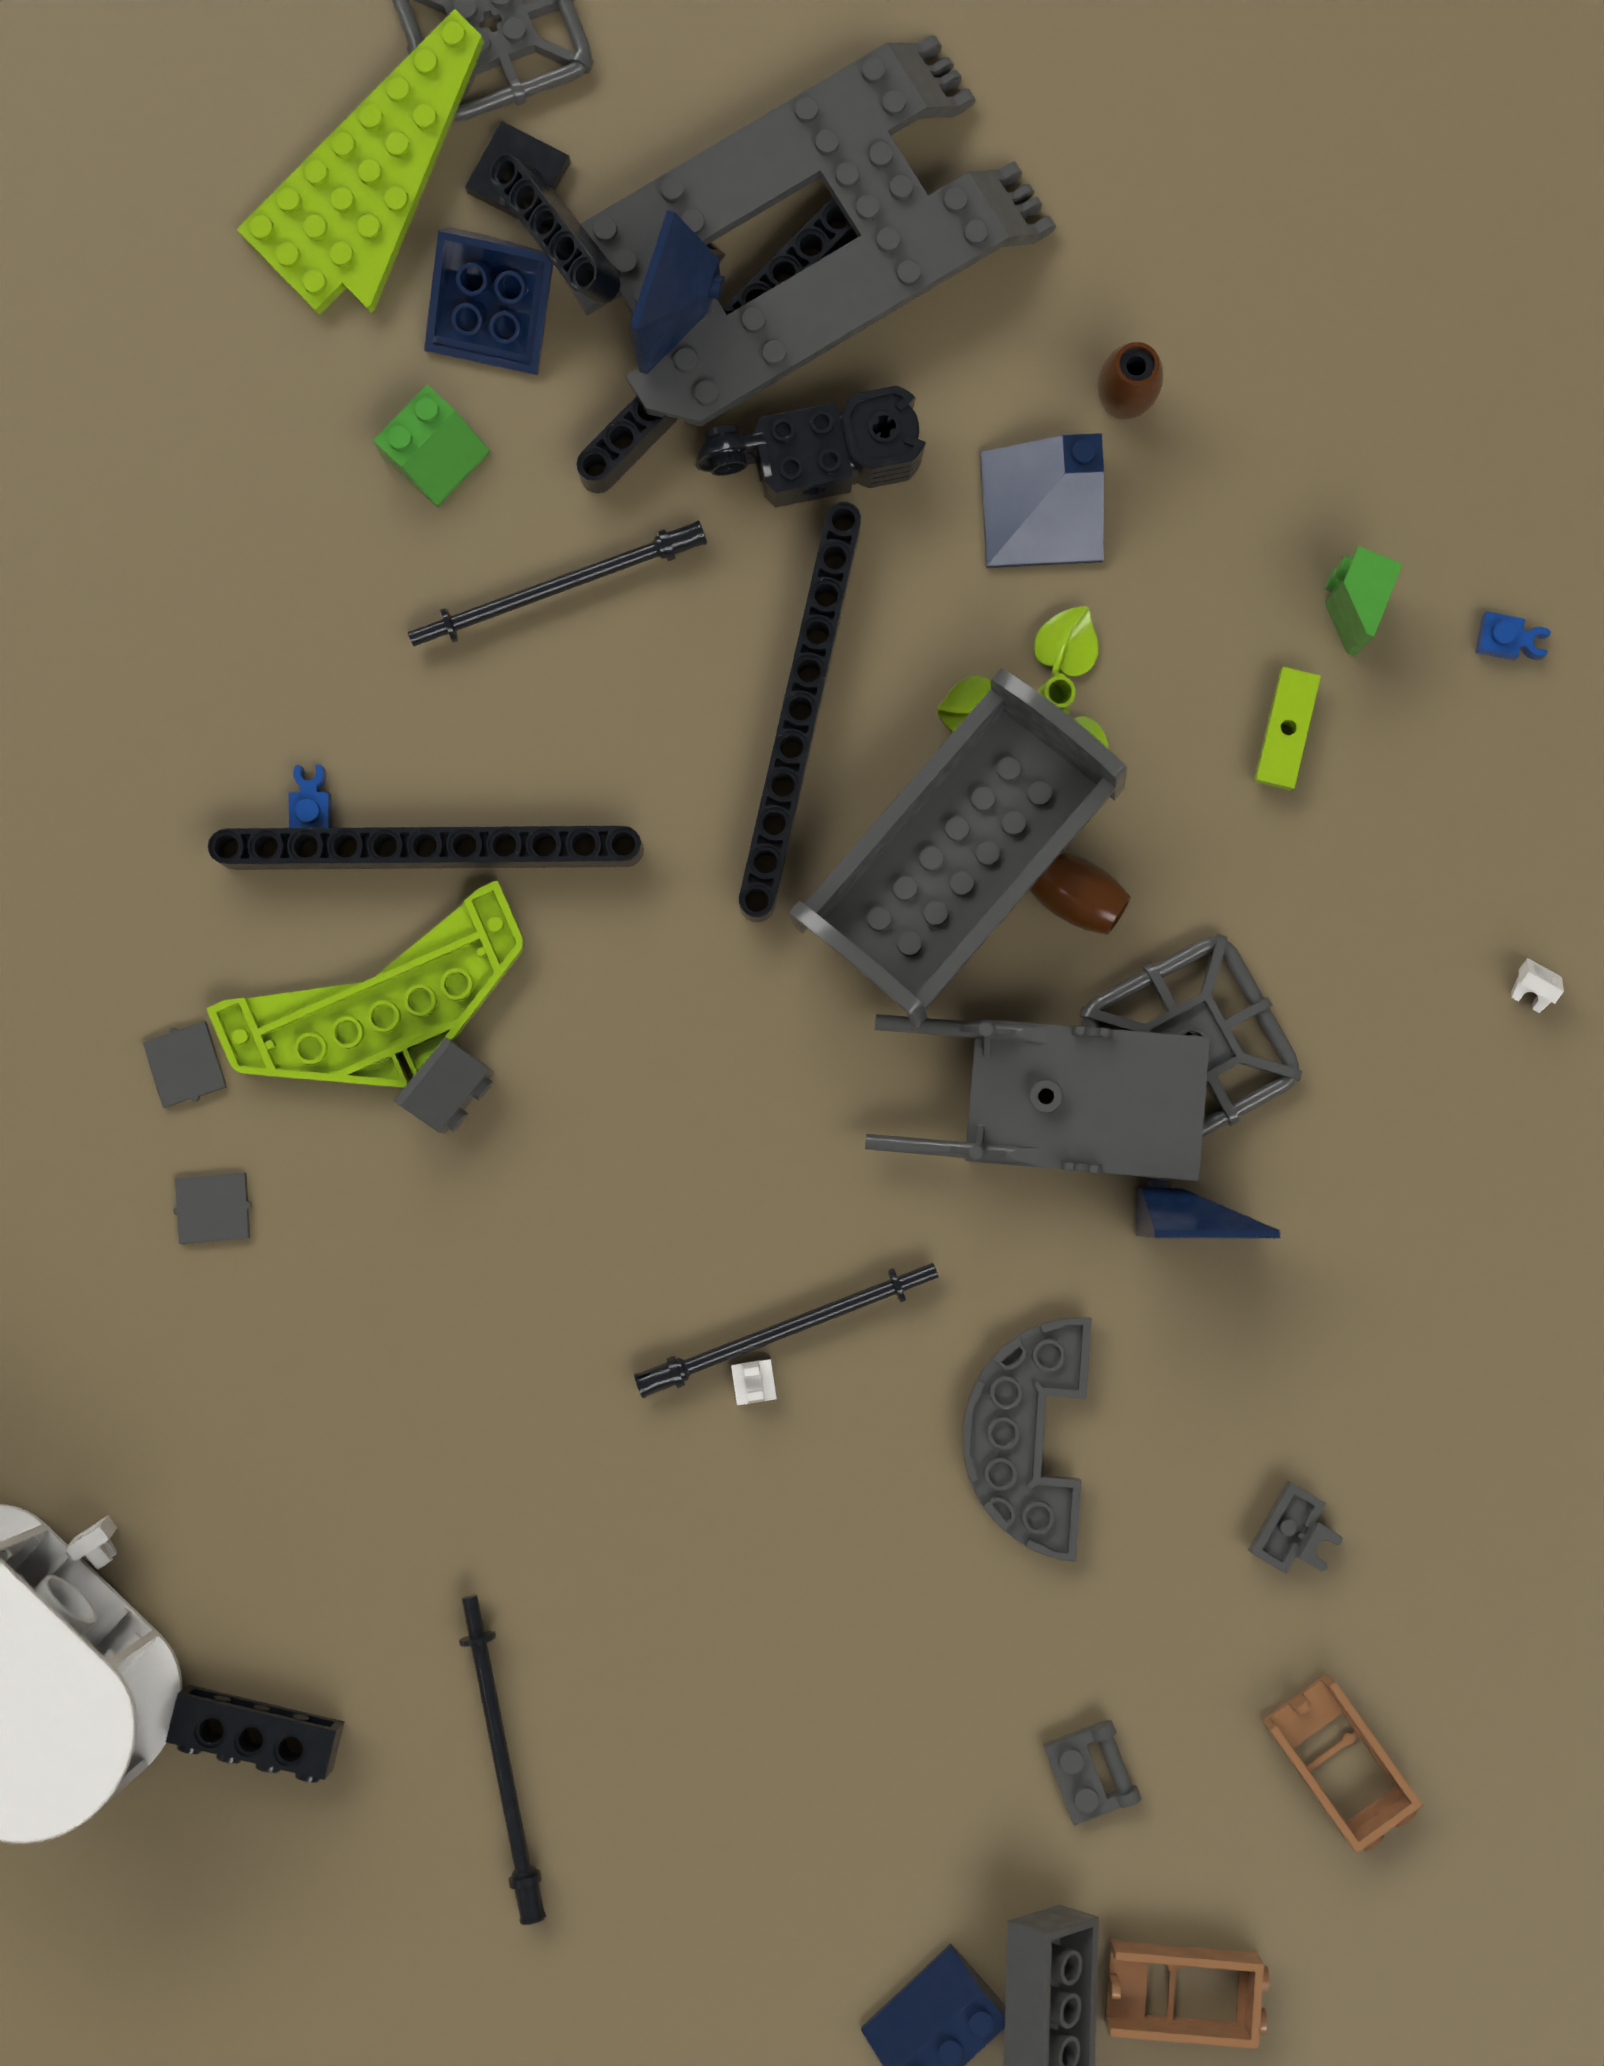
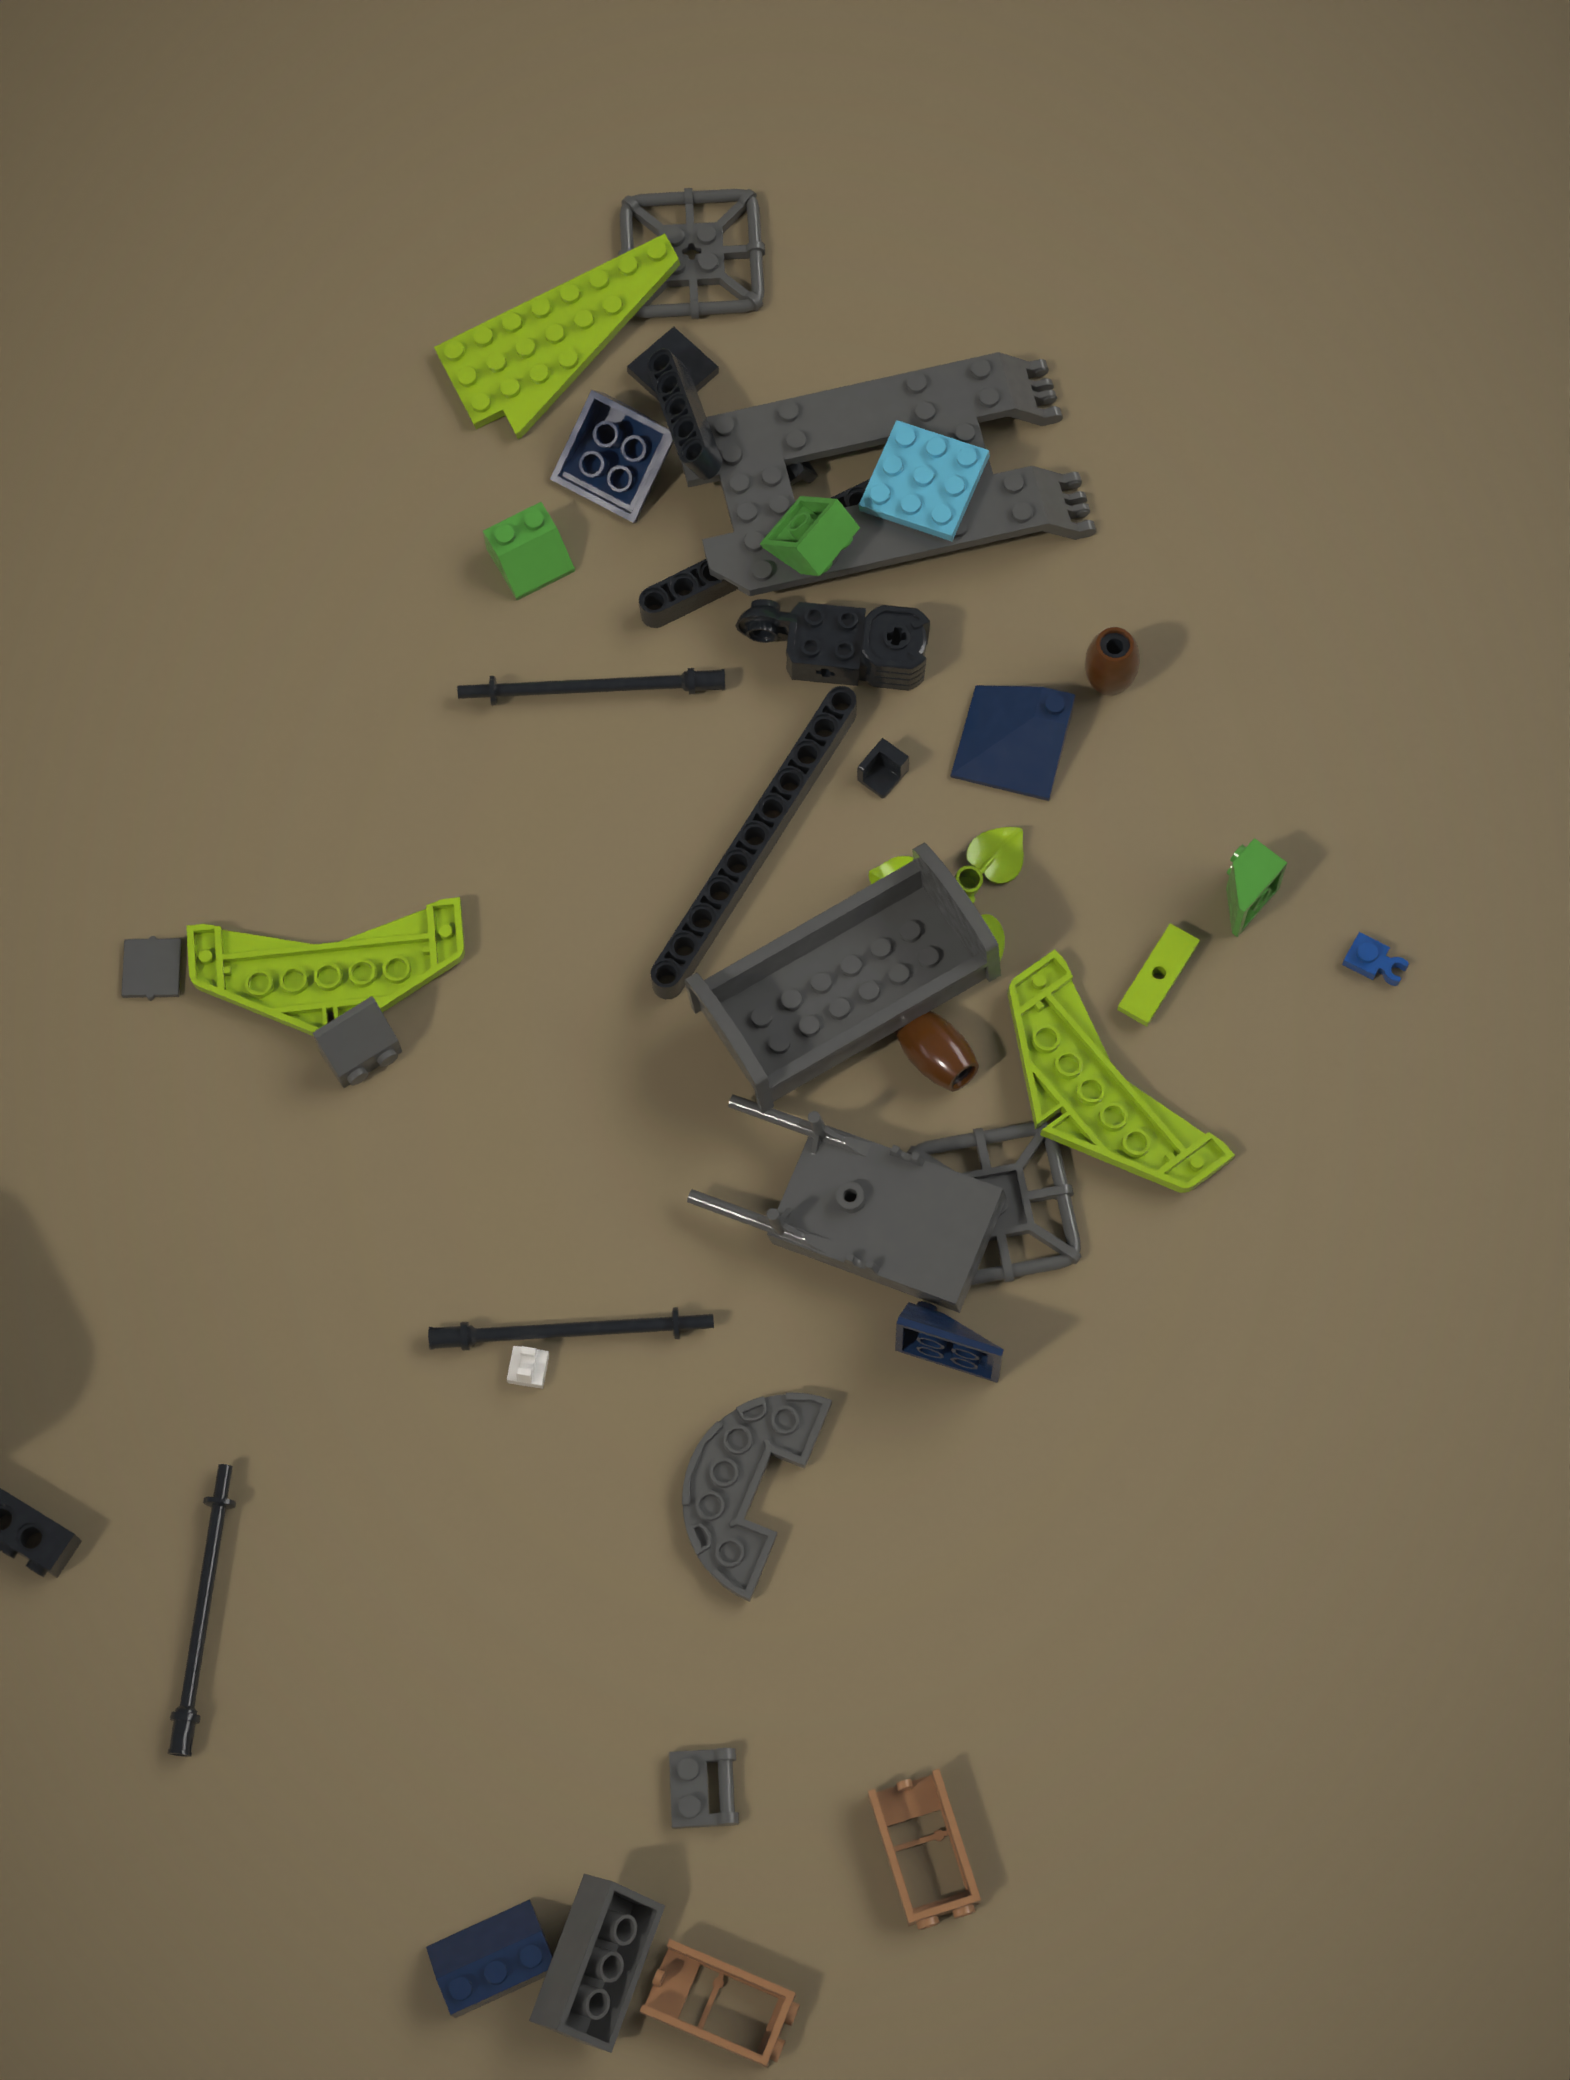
camera: 20 degrees right, 15 degrees down
(212, 1208) = (131, 1088): dark grey piece -> none
(310, 806) = (329, 798): blue plate -> none
(409, 839) = (422, 867): black beam -> none
(675, 292) = (756, 483): dark blue slope -> none
(751, 334) = (811, 534): none -> bright green slope
(855, 227) = (924, 480): none -> medium azure plate
(912, 583) = (883, 768): none -> black panel
(1234, 875) = (1099, 1108): none -> lime wing
(1293, 1530) = (947, 1636): dark grey plate -> none
(1539, 980) = (1309, 1242): white tile -> none

